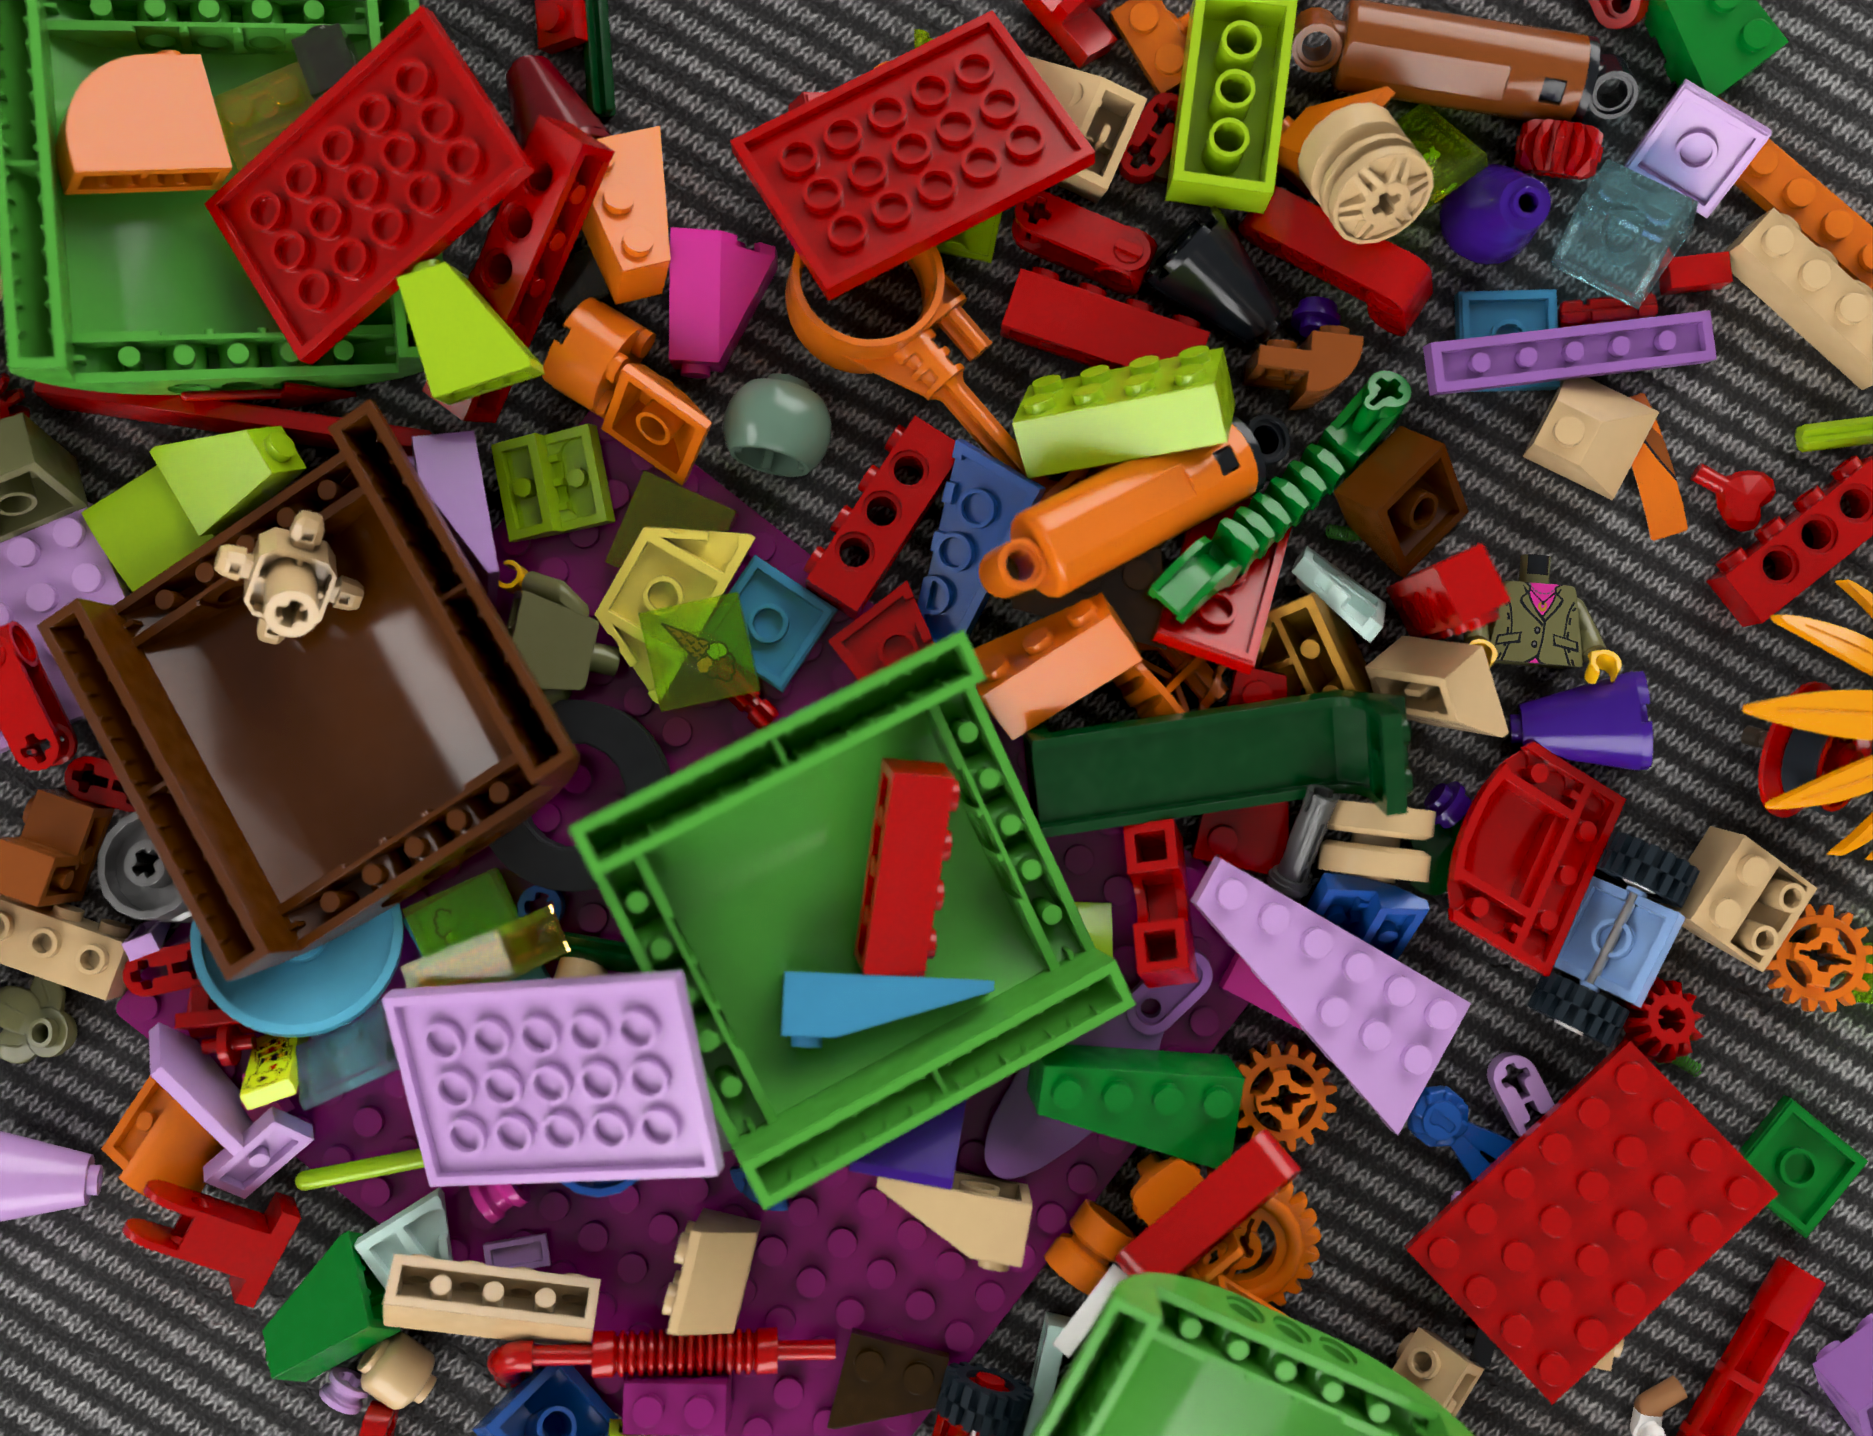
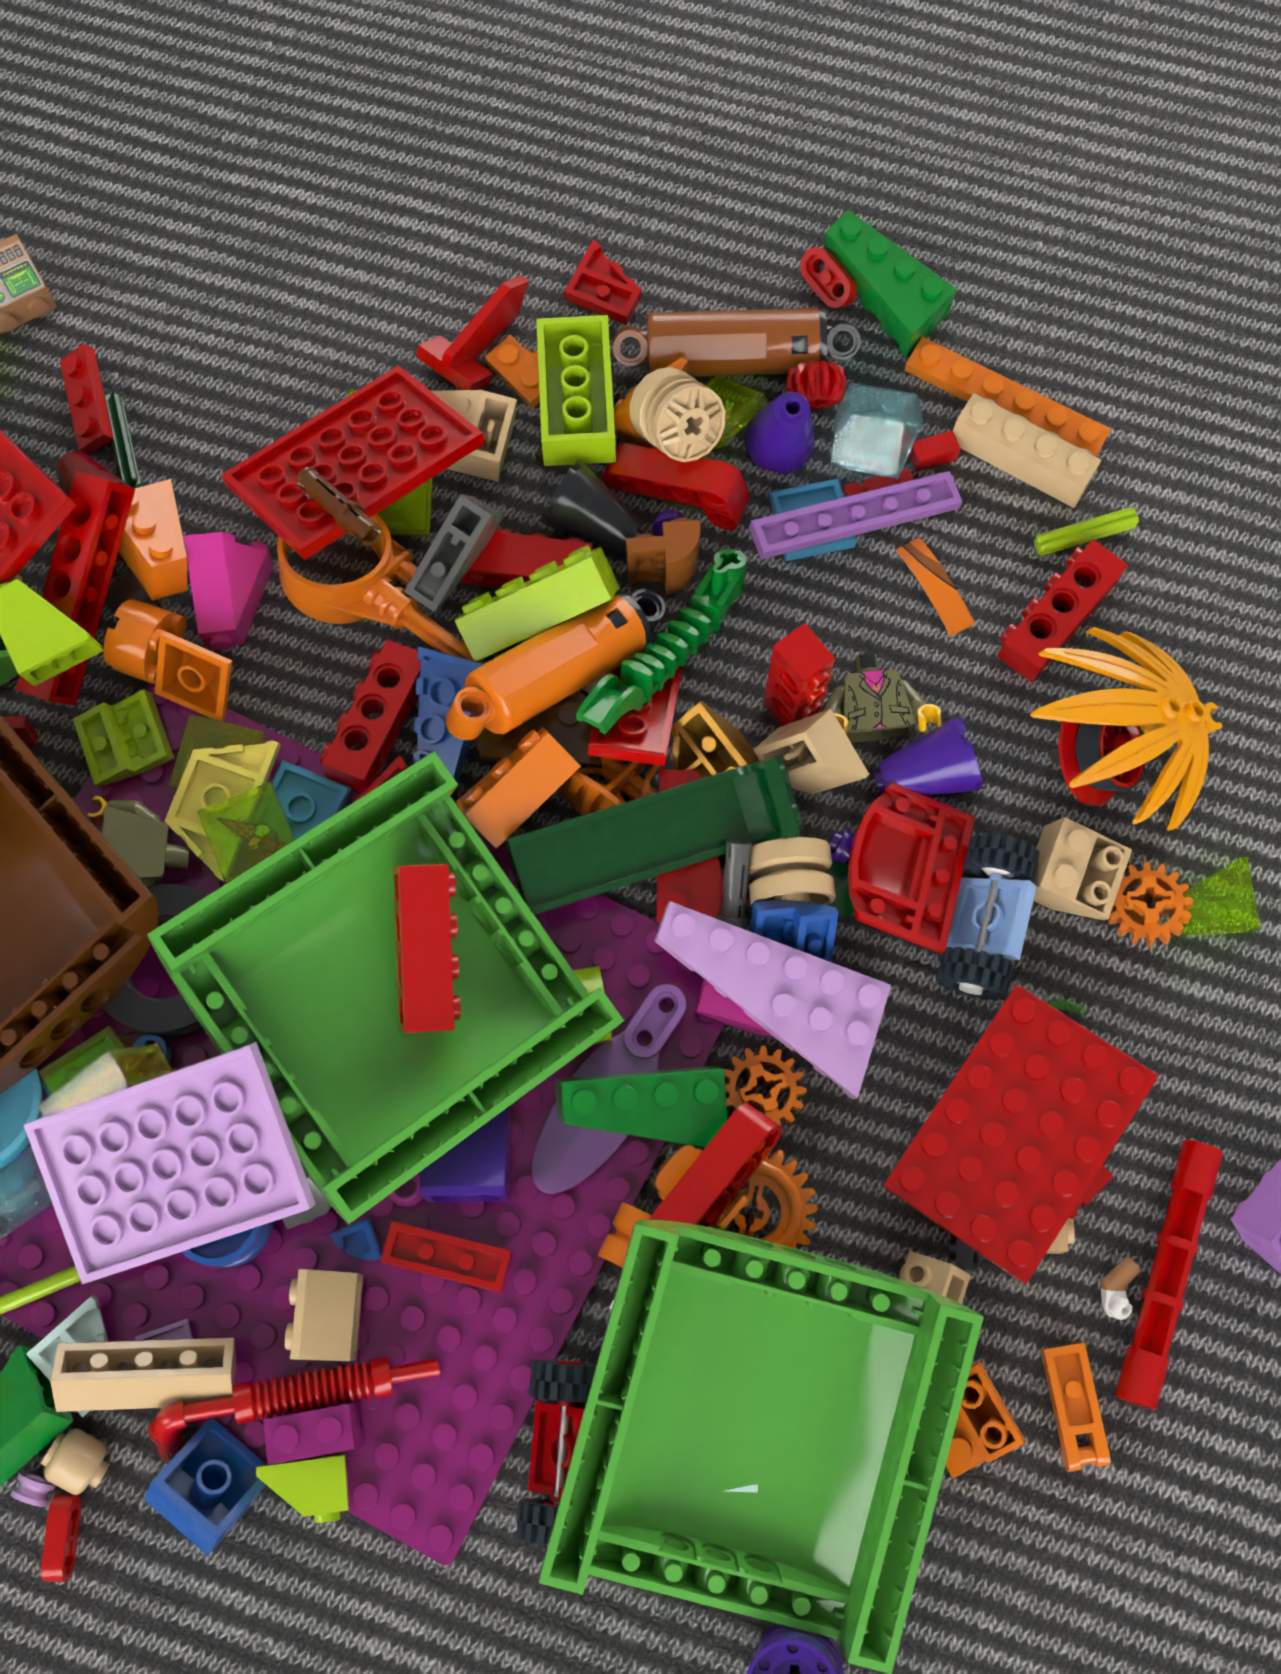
camera: 10 degrees left, 15 degrees down
(454, 480) = (45, 736): medium lavender slope -> none
(498, 1198) = (143, 1287): dark pink wheel -> none
(777, 426) = (285, 666): sand green wheel -> none
(845, 1003) = (398, 1062): dark azure slope -> none
(866, 1227) = (446, 1256): none -> red plate
(885, 1379) = (483, 1385): dark brown wing -> none
(896, 250) = (347, 513): none -> reddish brown pin
(978, 1216) = (534, 1221): tan slope -> none
(1025, 315) = (453, 551): none -> dark grey slope
(1084, 242) = (518, 504): red piece -> none
(1144, 133) = (523, 429): red beam -> none
(1163, 906) = (637, 961): red arch -> none
(1334, 529) = (735, 669): bright green leg -> none
(1341, 593) = (738, 713): light aqua wing -> none
(1403, 499) = (751, 628): reddish brown slope -> none
(1442, 1120) = (891, 1085): blue piece -> none
(1510, 1101) = (939, 1057): lavender beam -> none
(1591, 435) = (885, 570): tan slope -> none
(1663, 1023) = (1042, 972): red gear -> none
(1698, 146) = (914, 364): lavender tile -> none
(1737, 495) = (1003, 592): red rock -> none
(1801, 1163) = (1186, 1069): green tile -> none

